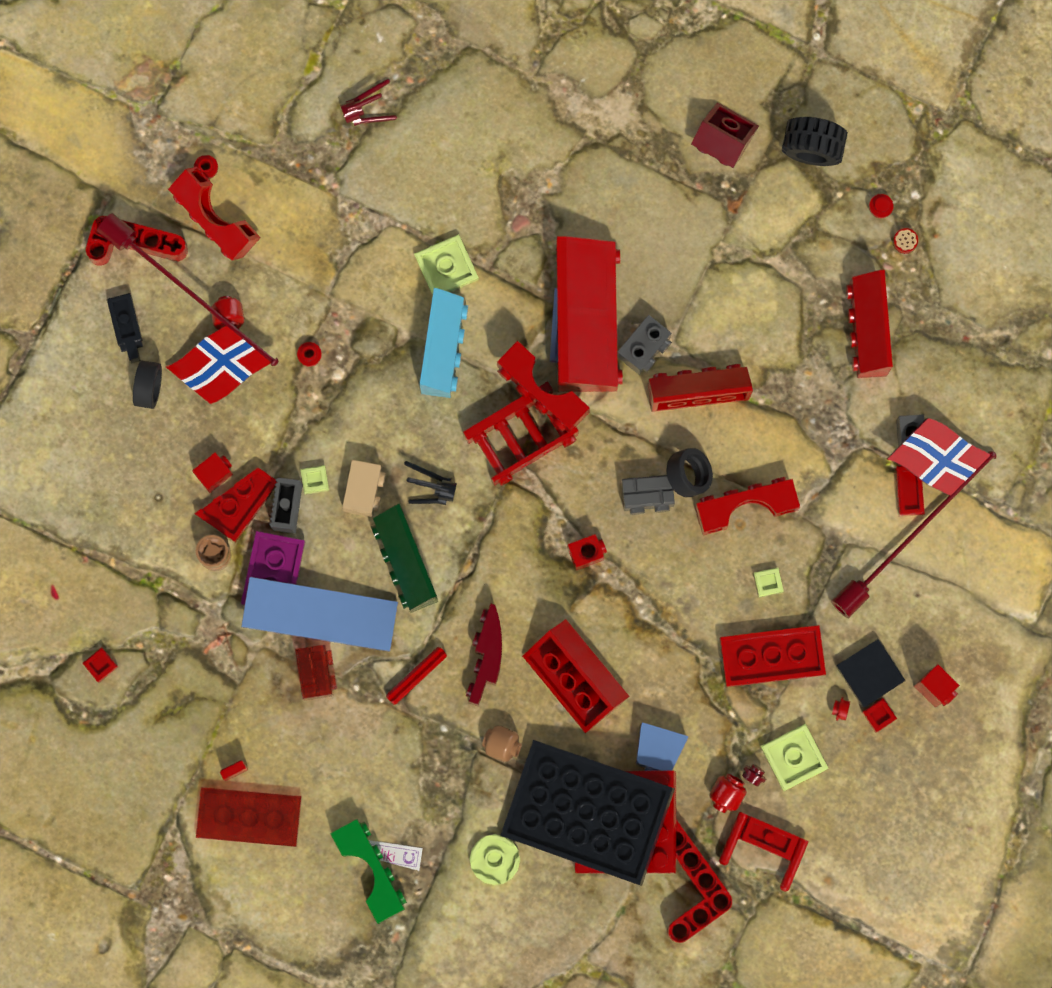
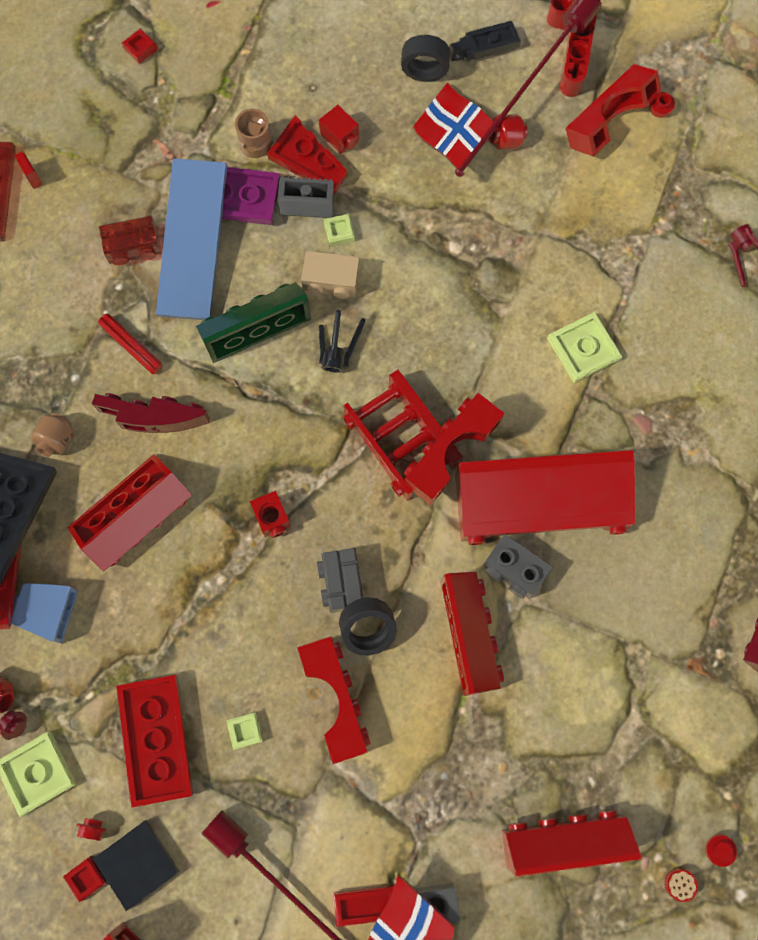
camera: 85 degrees right, 5 degrees down
(314, 360) = (473, 221): red plate -> none
(442, 344) = (496, 341): medium azure slope -> none

